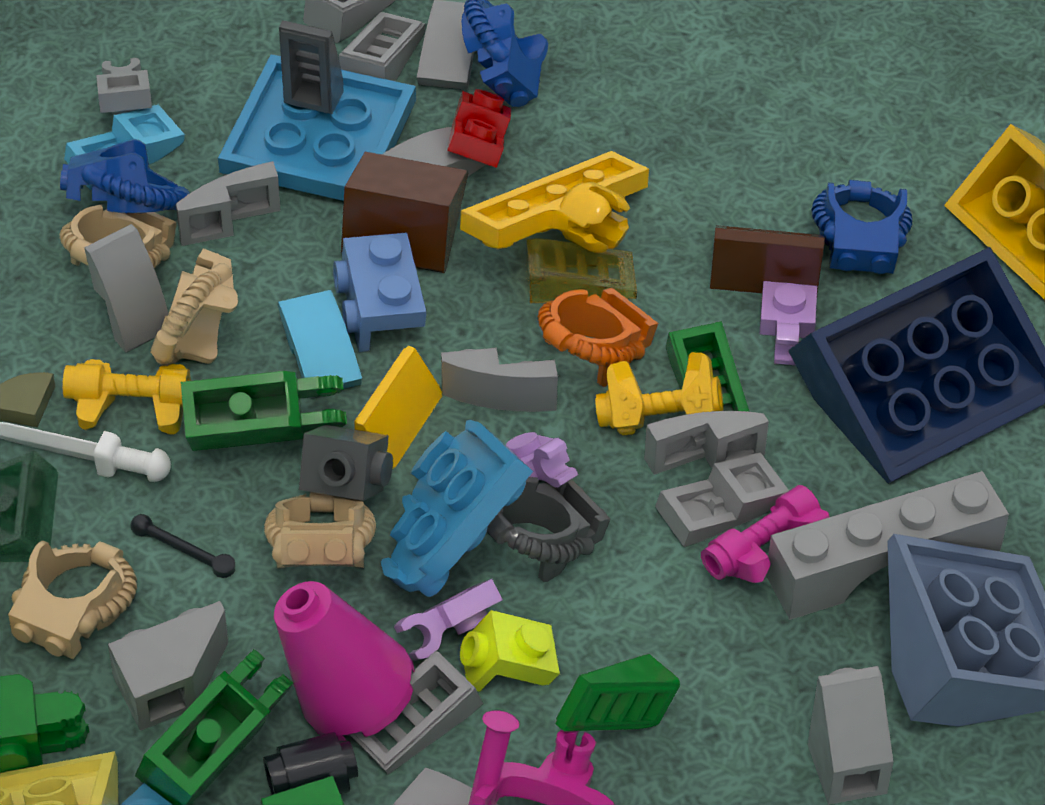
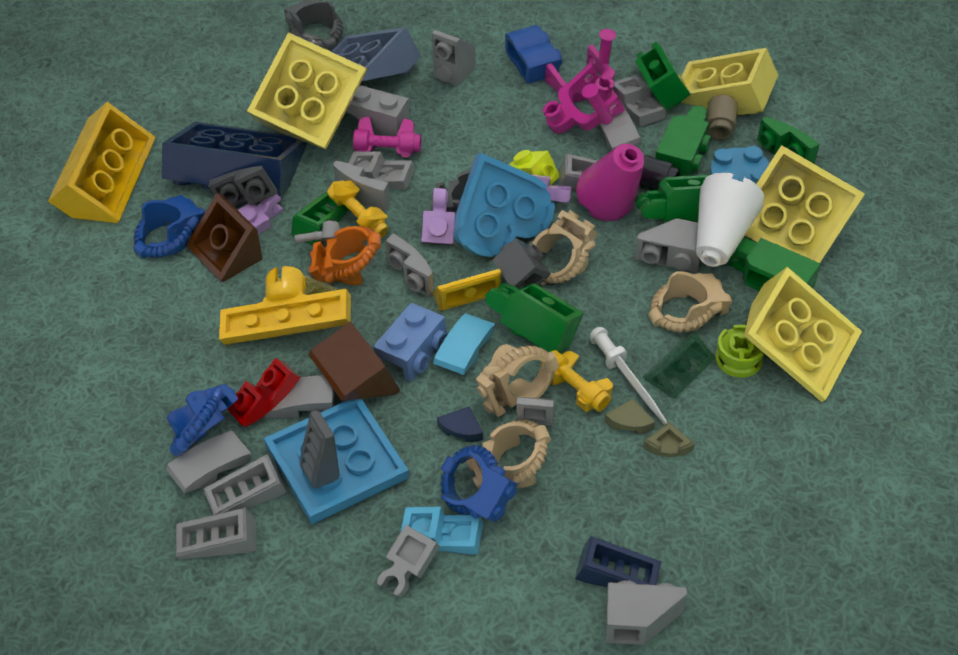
camera: 135 degrees left, 0 degrees up
(103, 686) = (725, 216): none -> white cone
(212, 207) = (432, 445): light grey slope -> none
(222, 565) = (609, 283): black hinge -> none
(236, 248) = (461, 424): none -> dark blue tile
(619, 697) = (508, 127): green slope -> none
(657, 338) = (328, 229): none -> light grey hand
(827, 300) = (244, 185): none -> dark grey slope
(922, 445) = (306, 91): none -> light yellow slope

